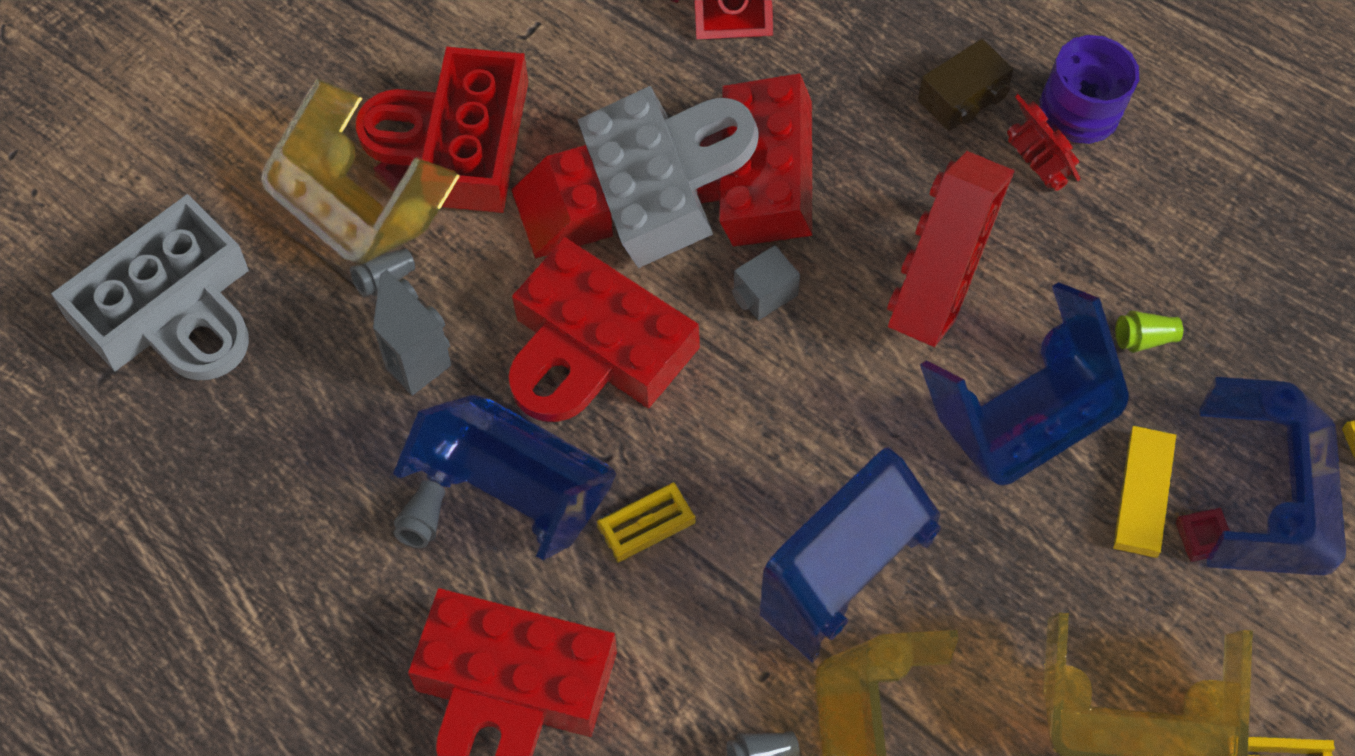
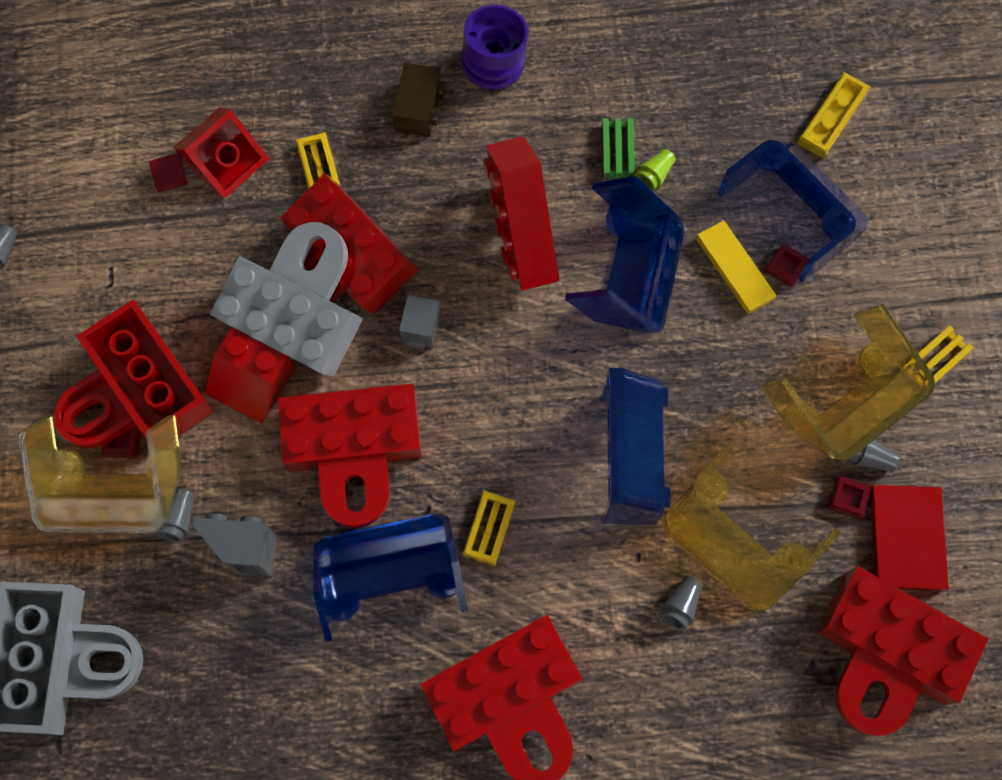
camera: 45 degrees left, 10 degrees up
(420, 517) = (357, 648): dark grey cone -> none
(830, 73) = (312, 140): none -> yellow tile
(1044, 148) = (485, 95): red hinge -> none
(1150, 261) = (618, 126): none -> bright green tile

